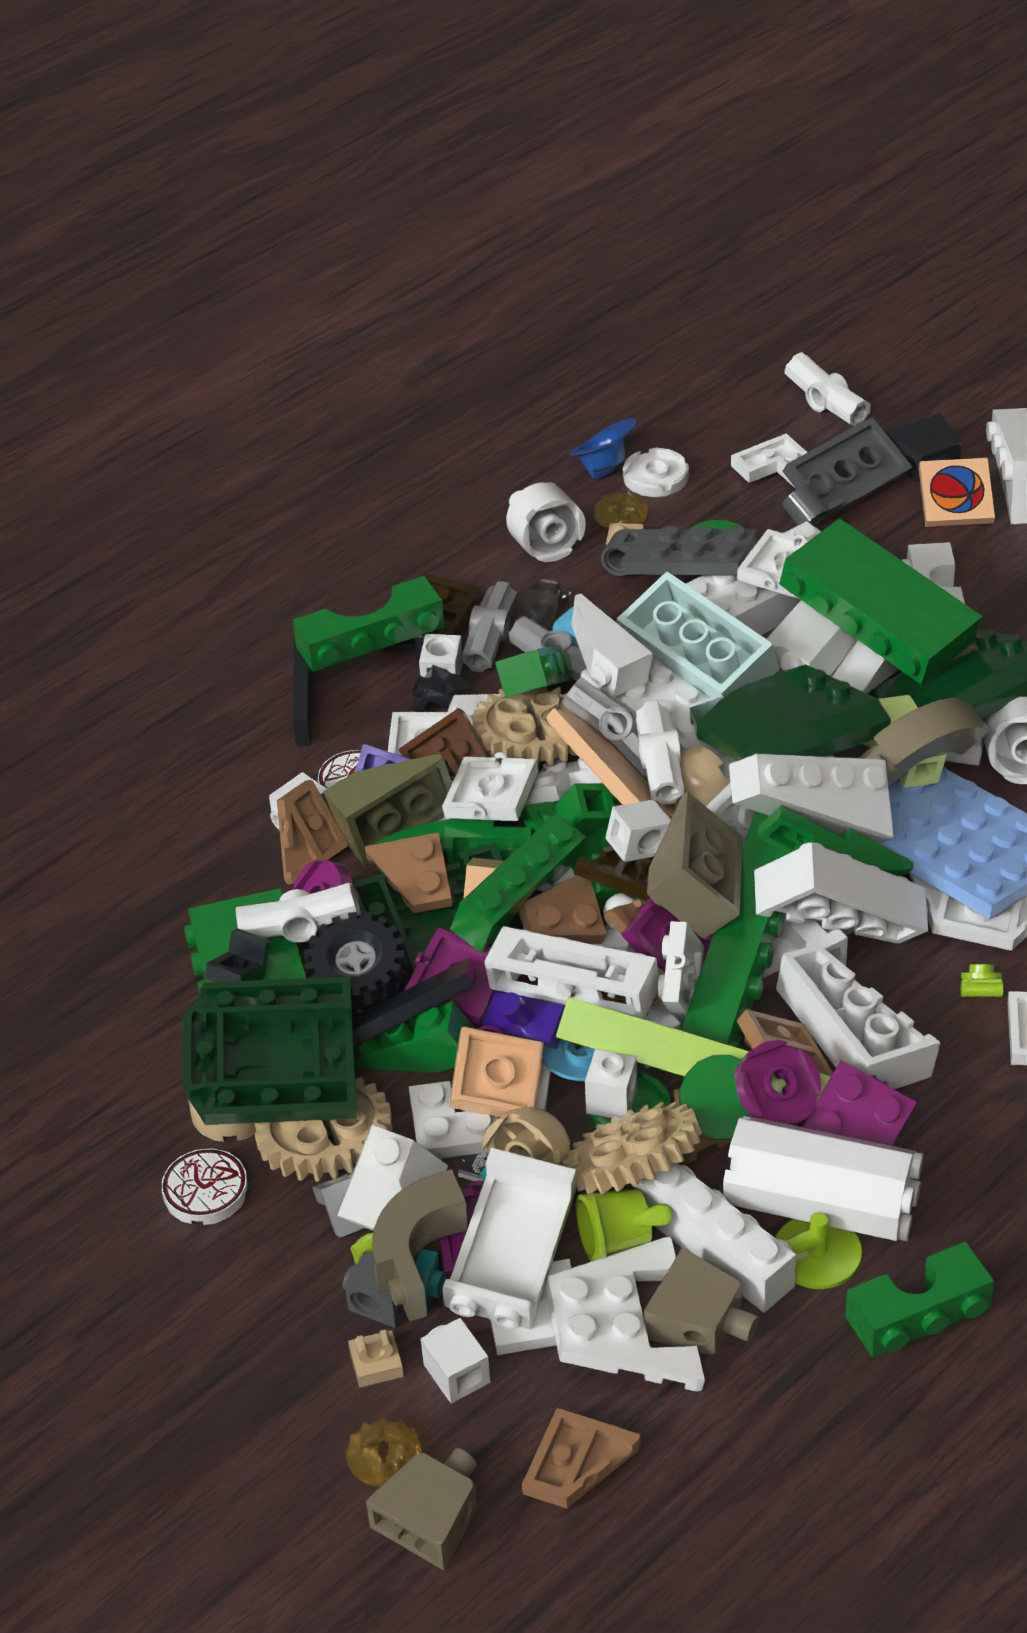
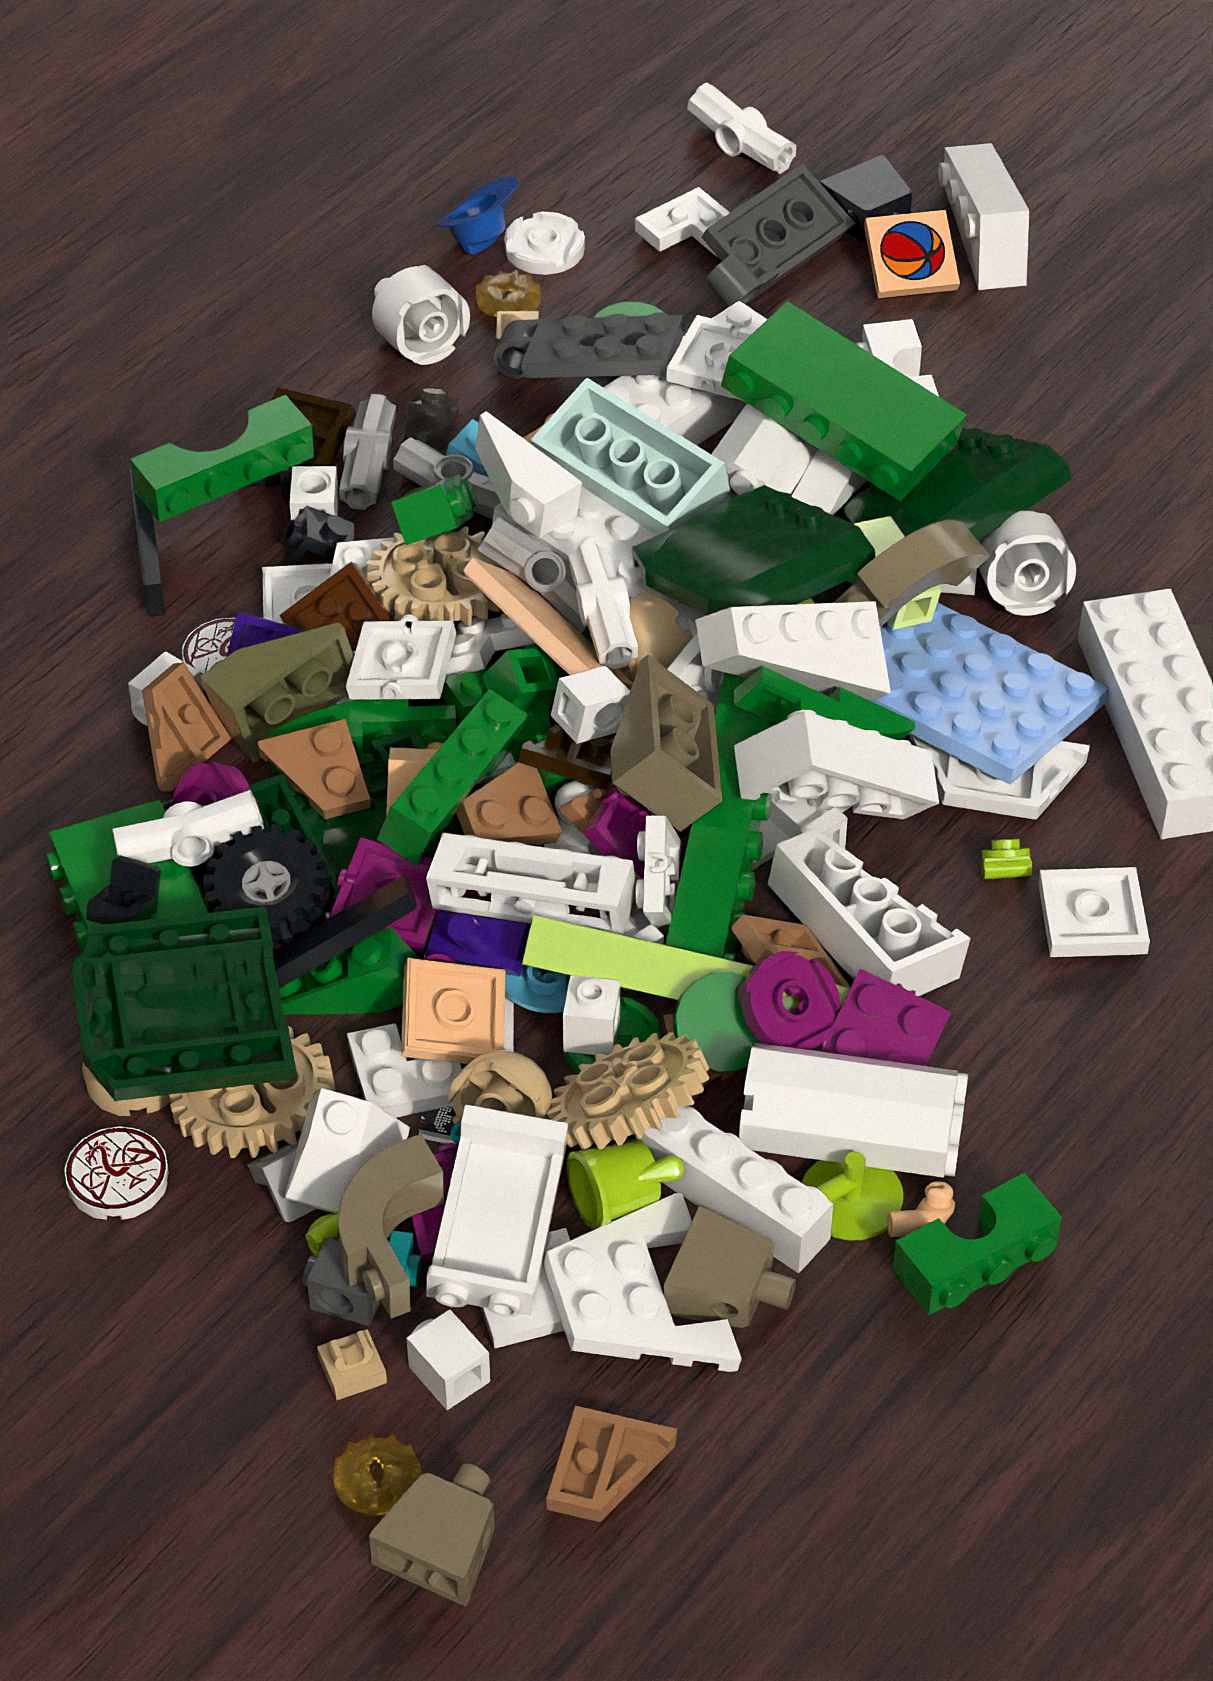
camera: 10 degrees left, 5 degrees up
(888, 1263) = (935, 1205): none -> light nougat arm

